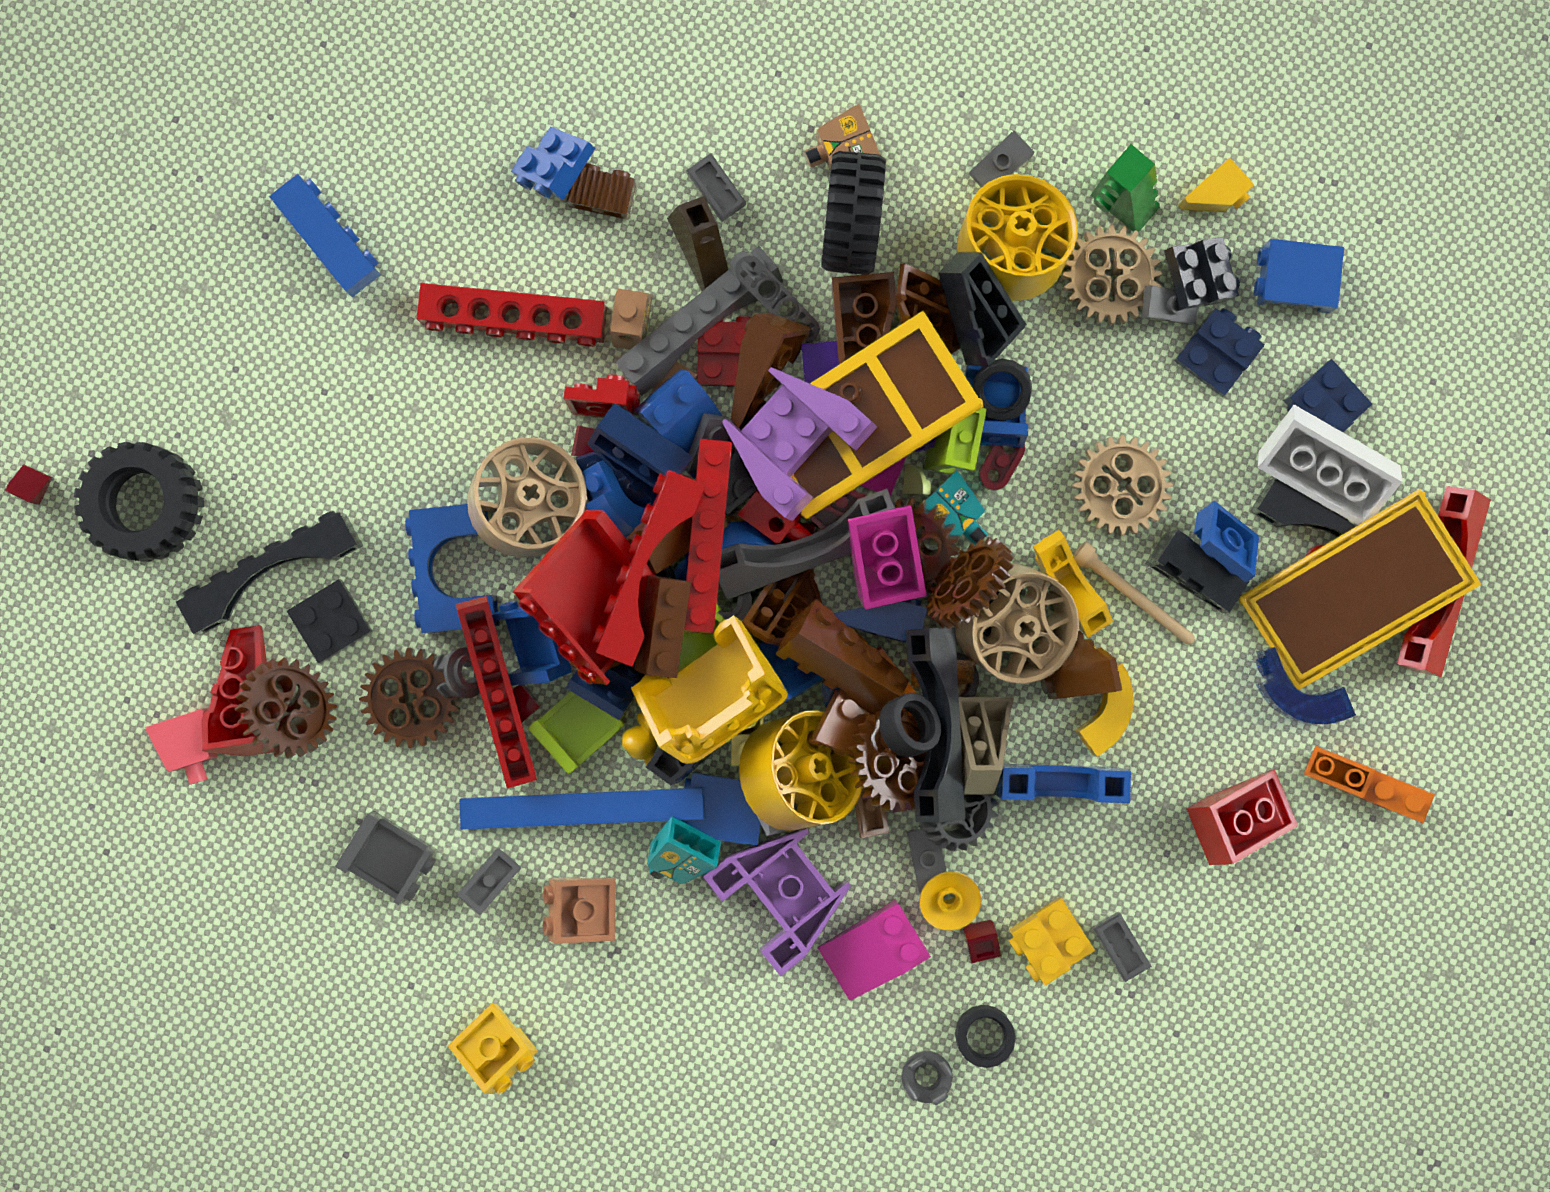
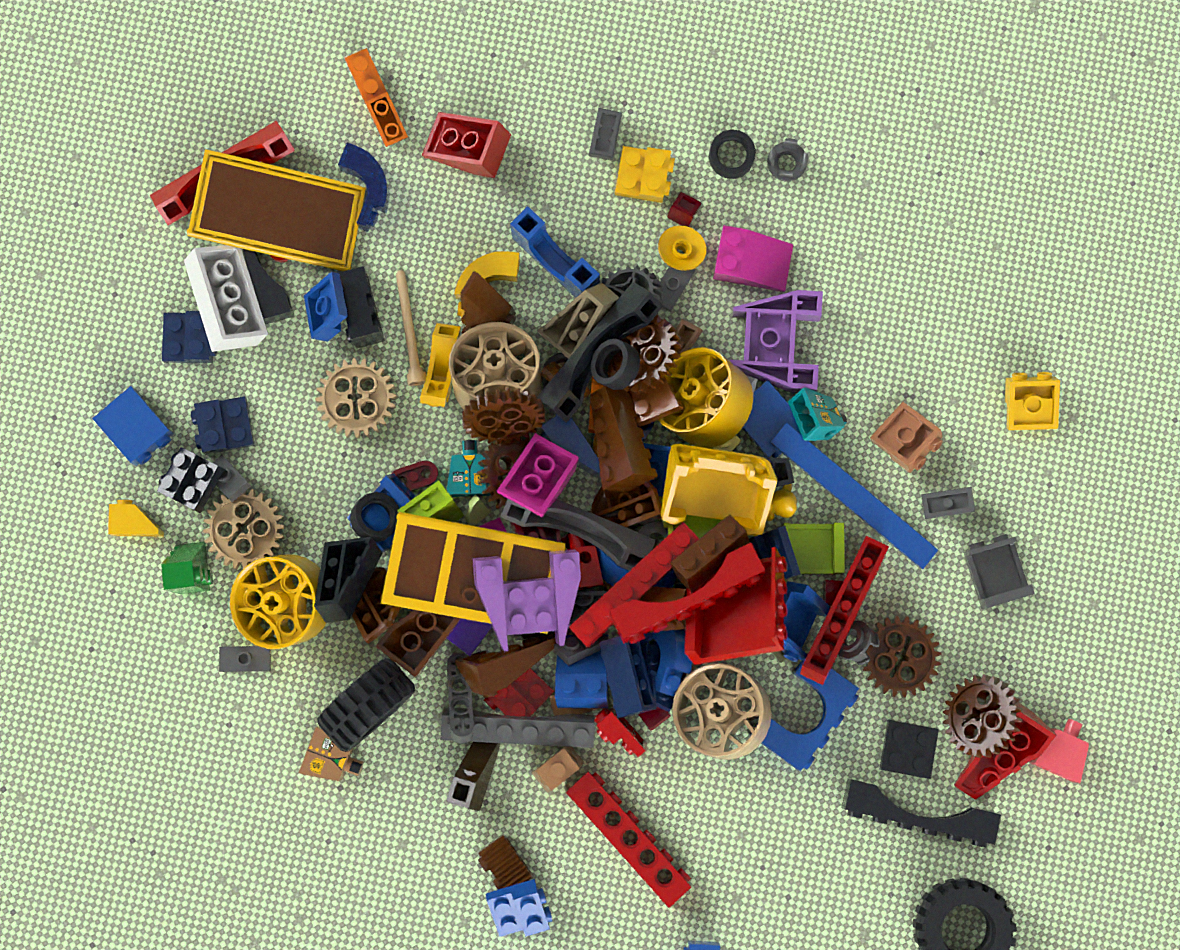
camera: 140 degrees left, 5 degrees down
(716, 187) = (432, 803): dark grey plate -> none

